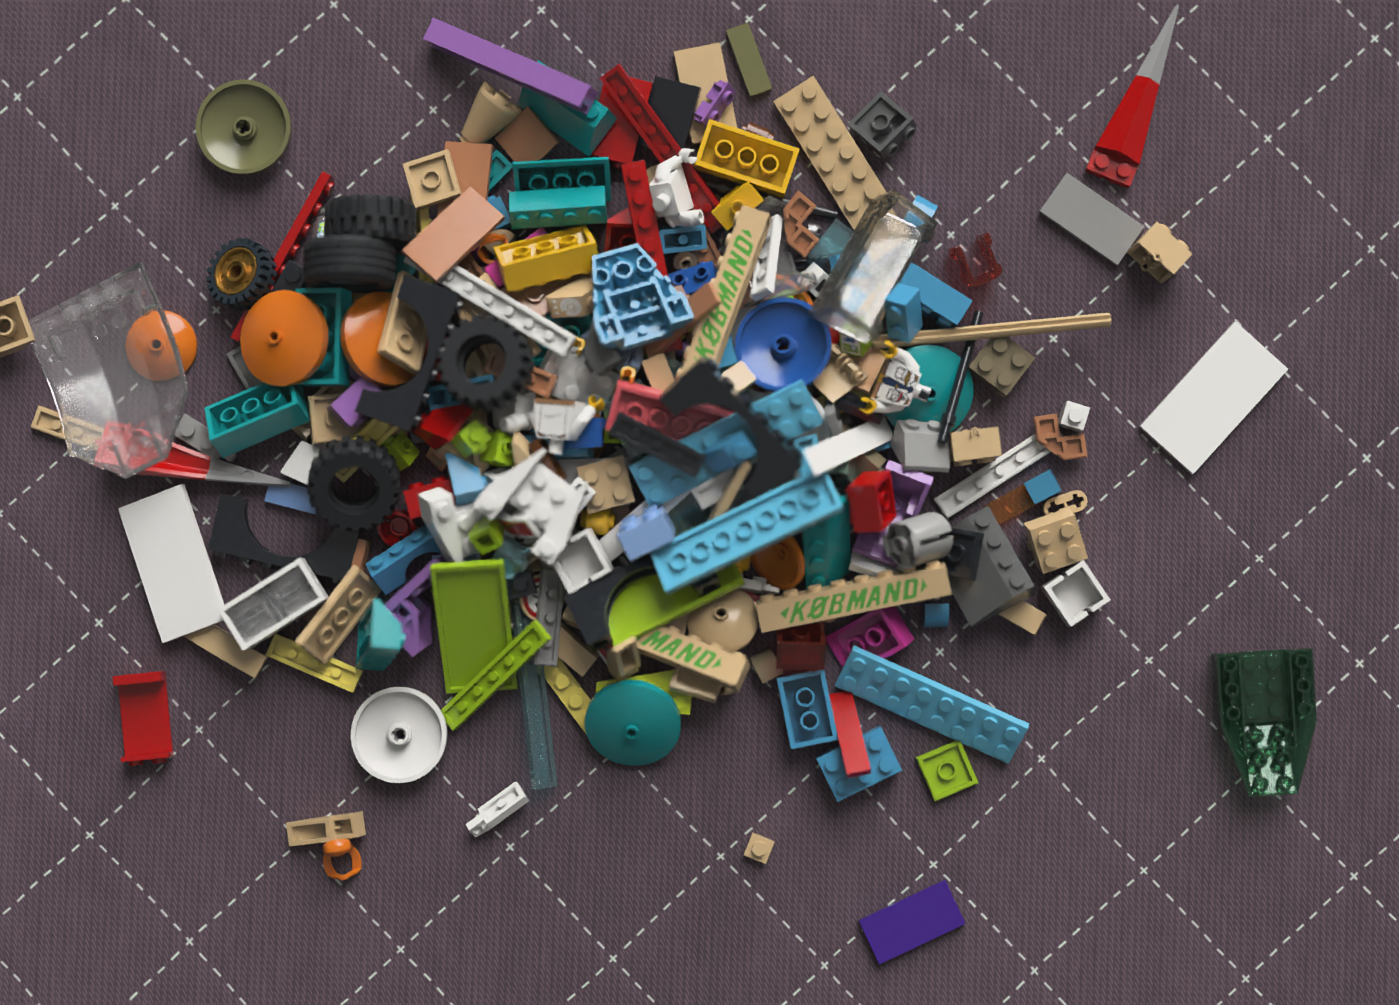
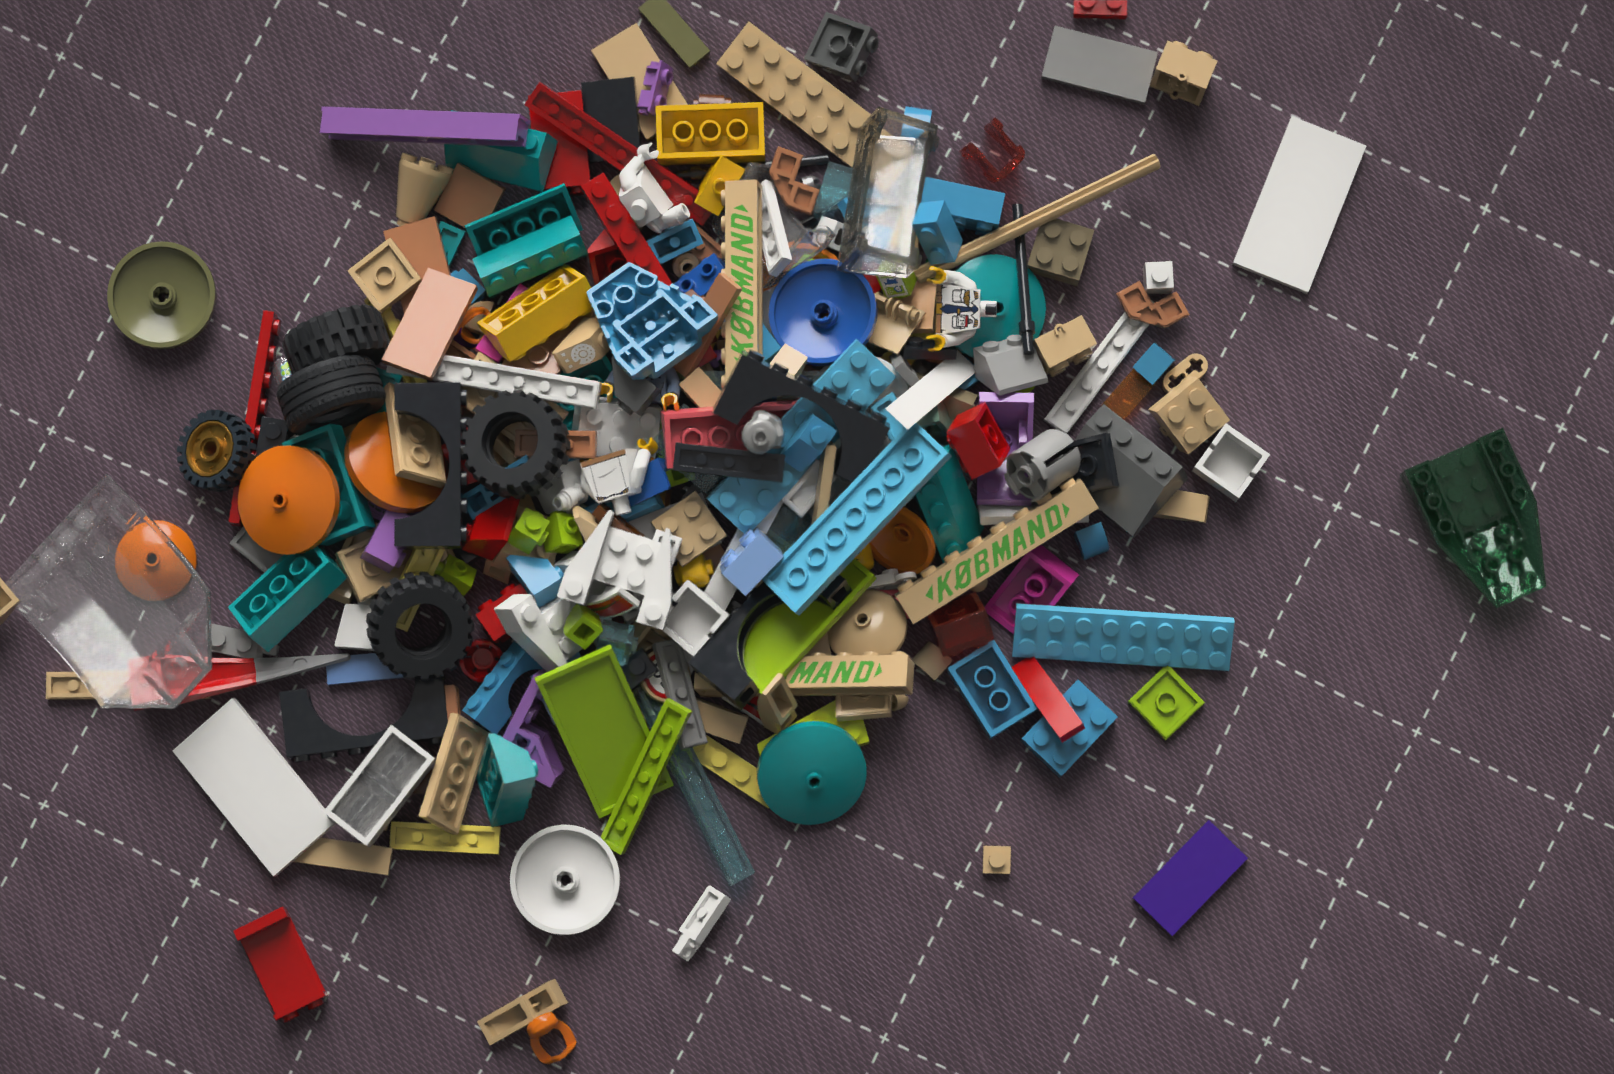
camera: 20 degrees left, 5 degrees down
(694, 430) = (763, 432): none -> light grey head

